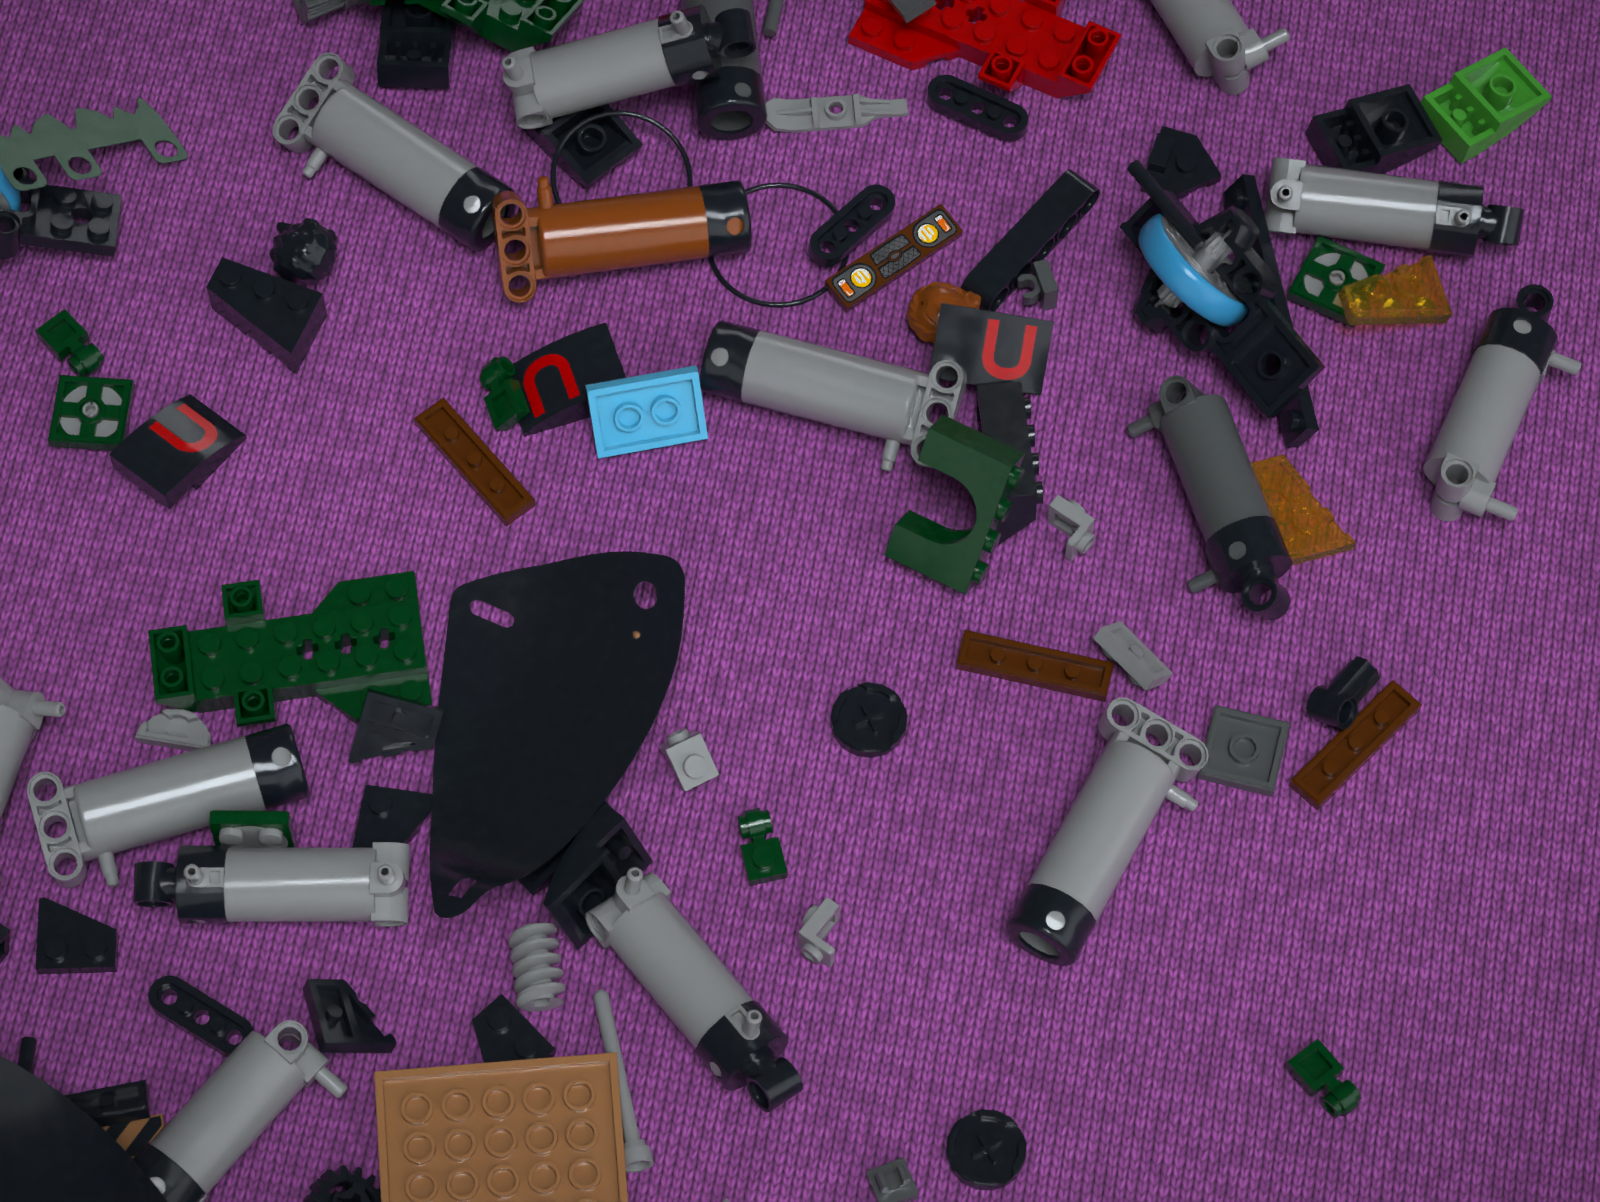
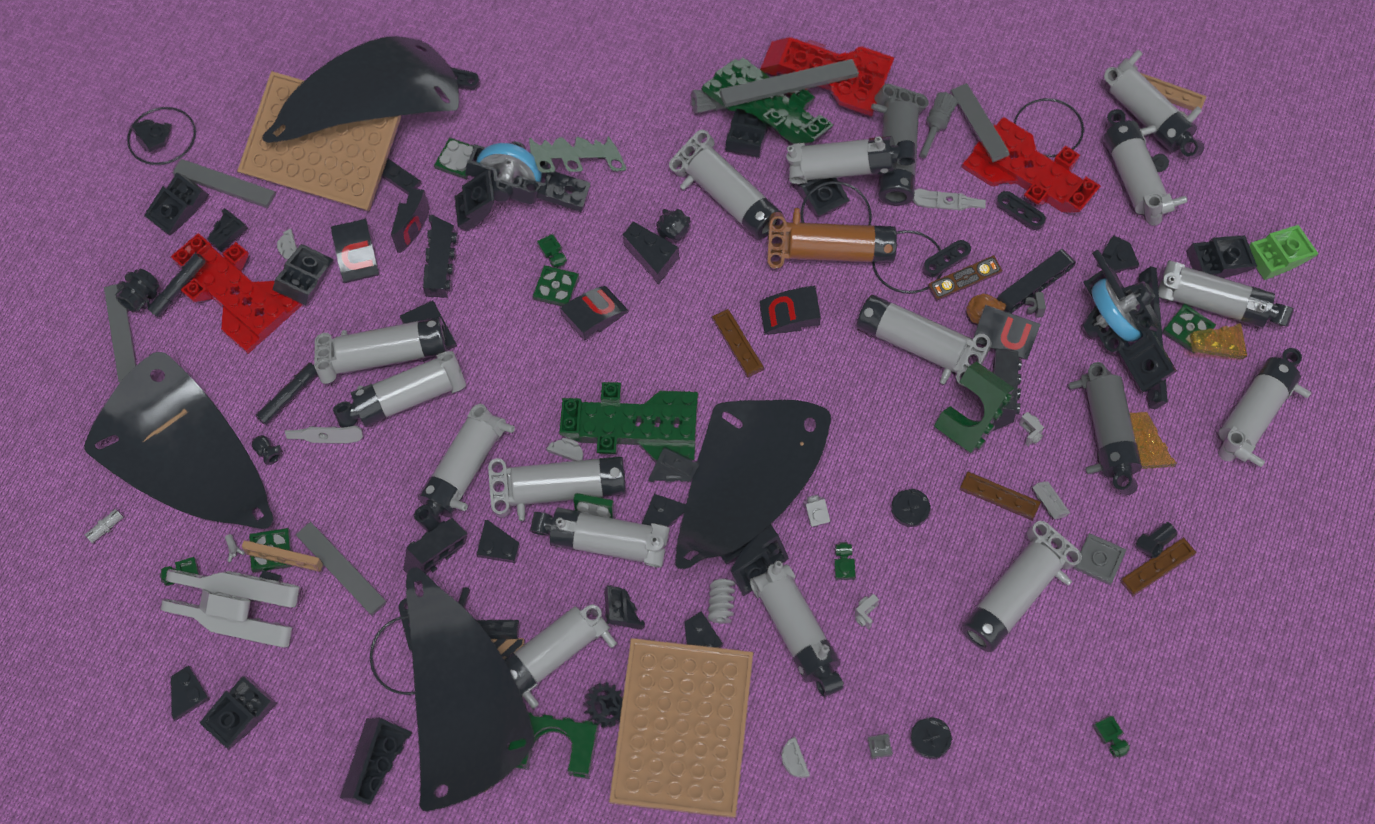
camera: 15 degrees right, 0 degrees up
(192, 1004) = (546, 588): black plate -> none
(506, 401) = (758, 315): dark green plate -> none
(637, 1154) = (754, 705): light grey piece -> none
(647, 411) = (827, 333): medium azure plate -> none

